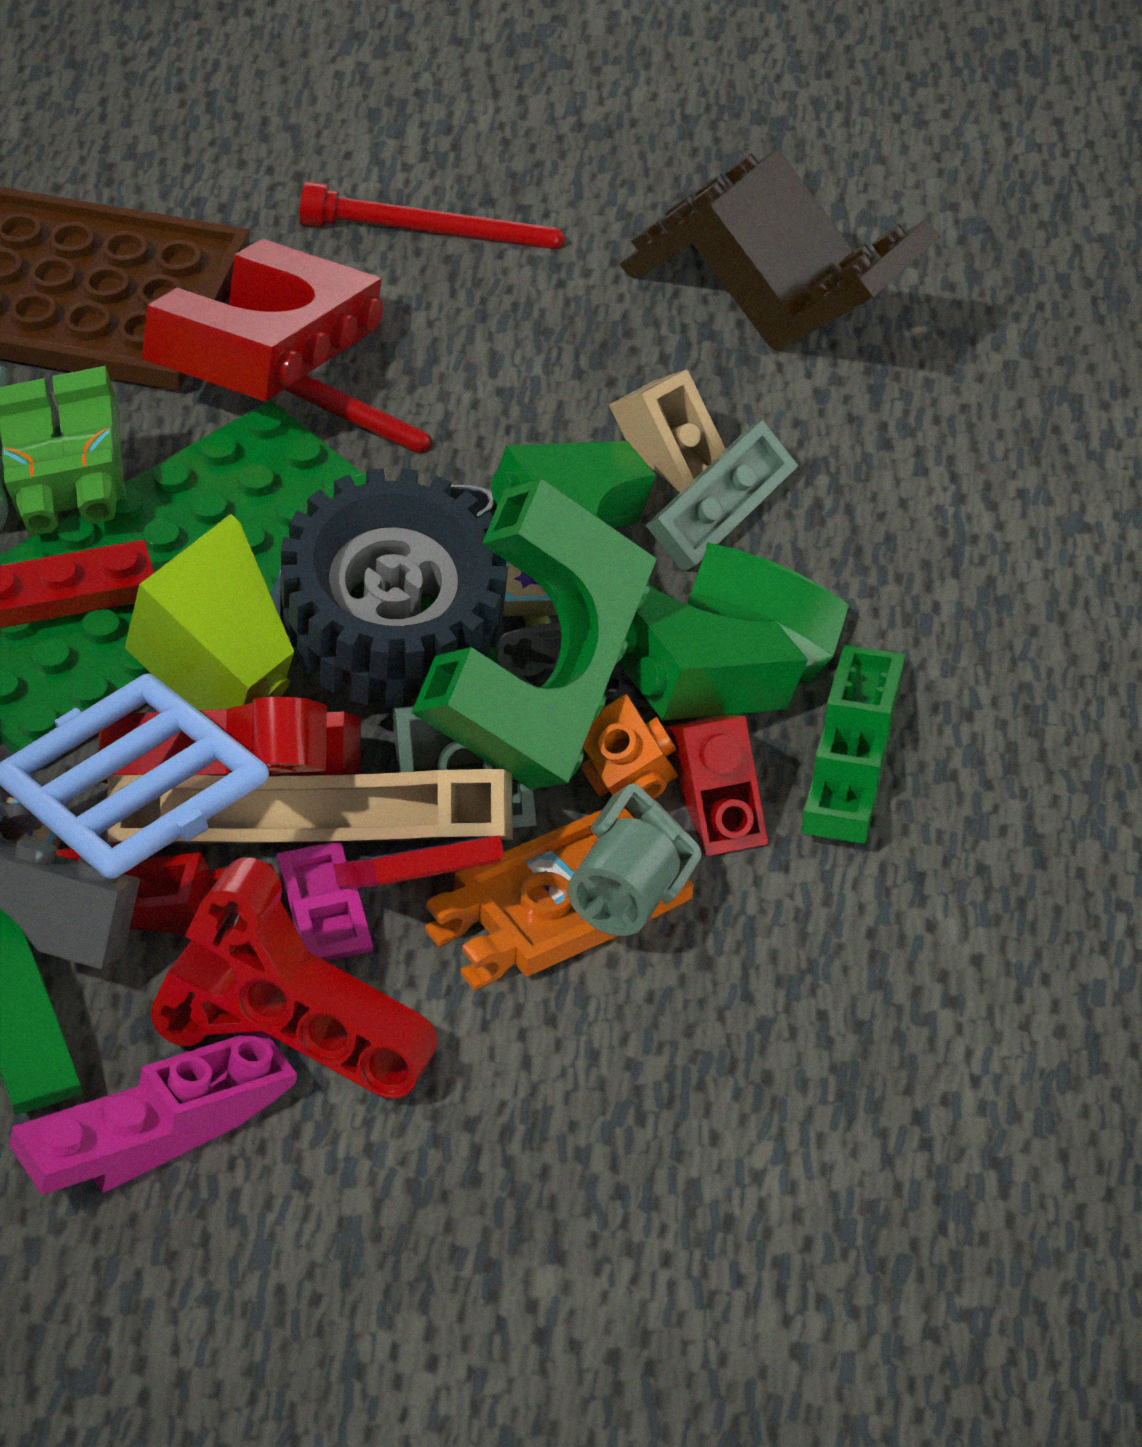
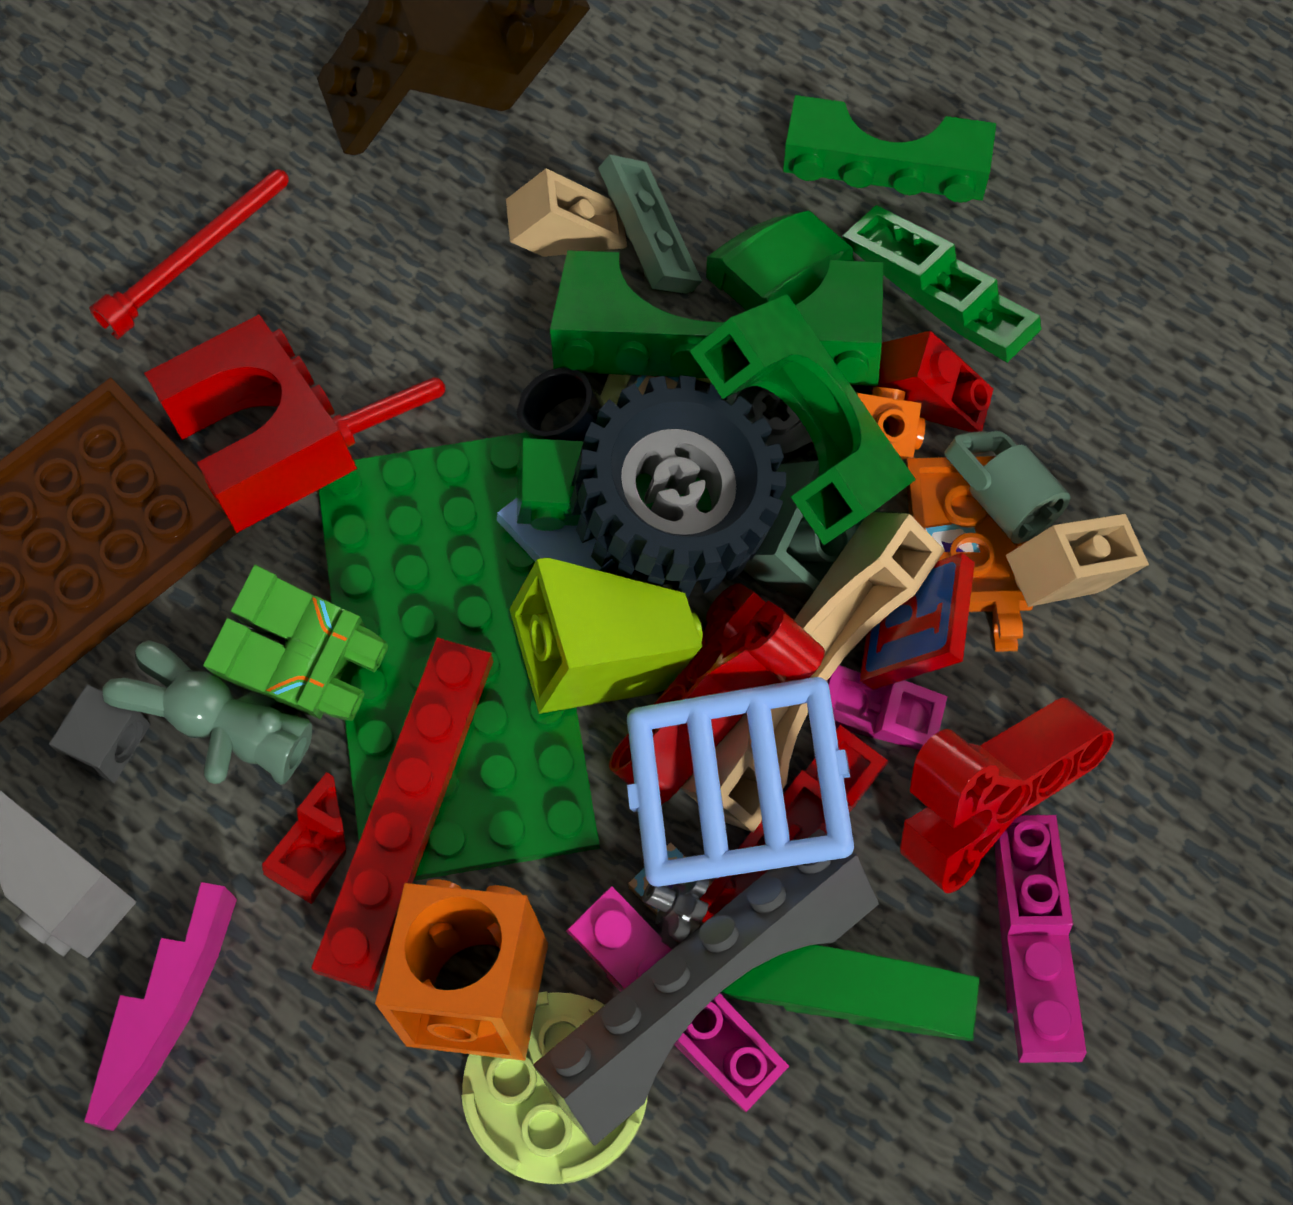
camera: 55 degrees left, 20 degrees up
(586, 955) = (1076, 559): none -> tan brick
(1005, 679) = (831, 146): none -> green arch

